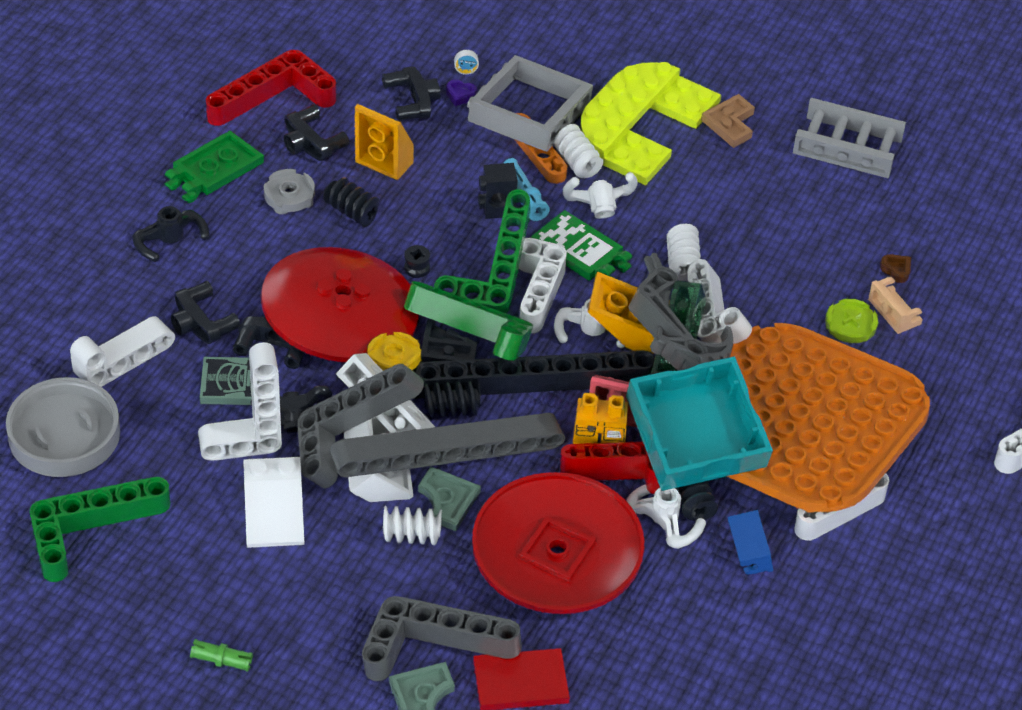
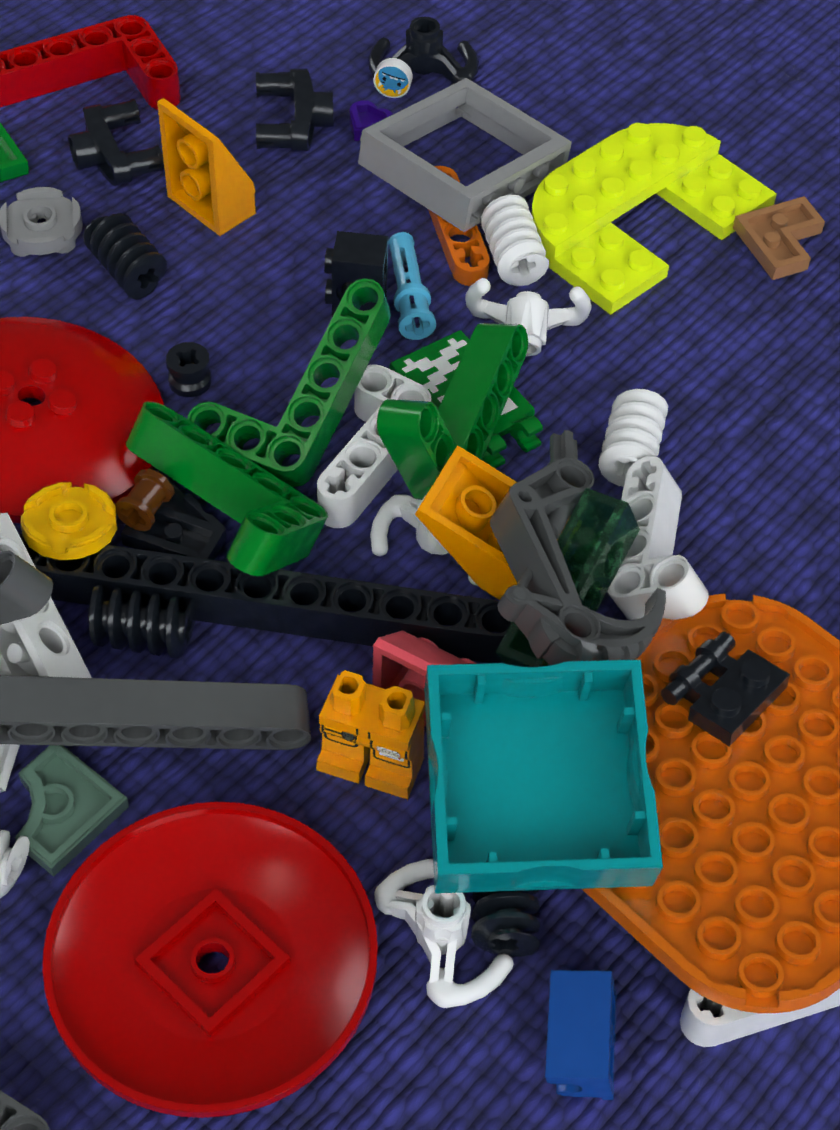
camera: 15 degrees right, 5 degrees up
(429, 337) = (144, 499): none -> reddish brown bush
(482, 42) = (426, 52): none -> black piece
(579, 267) = (424, 437): none -> green beam
(609, 462) = (360, 801): red beam -> none
(782, 369) = (735, 698): none -> black plate

